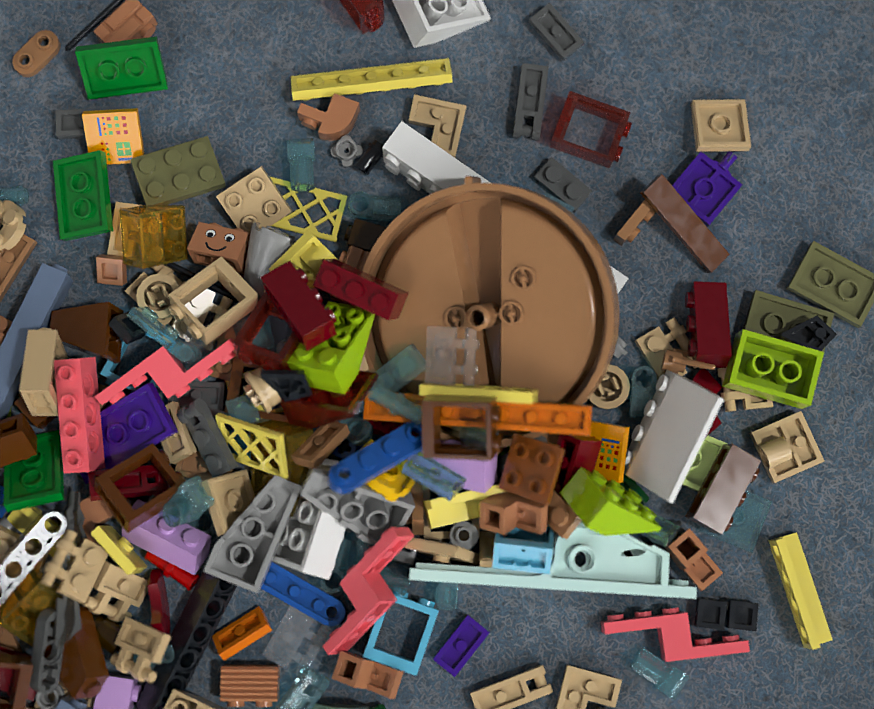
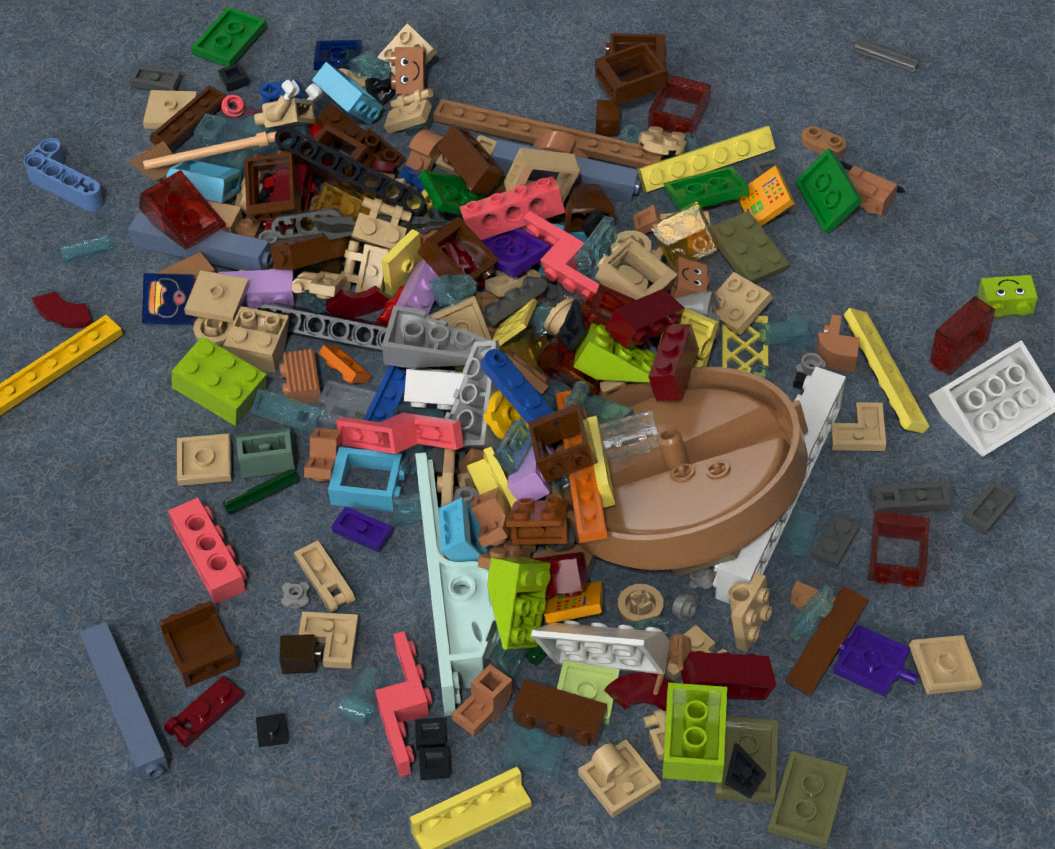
camera: 85 degrees right, 30 degrees down
(35, 184) = (706, 158): none -> light yellow plate
(653, 291) = (749, 610): none -> tan plate
(656, 230) = (807, 617): none -> clear light blue plate

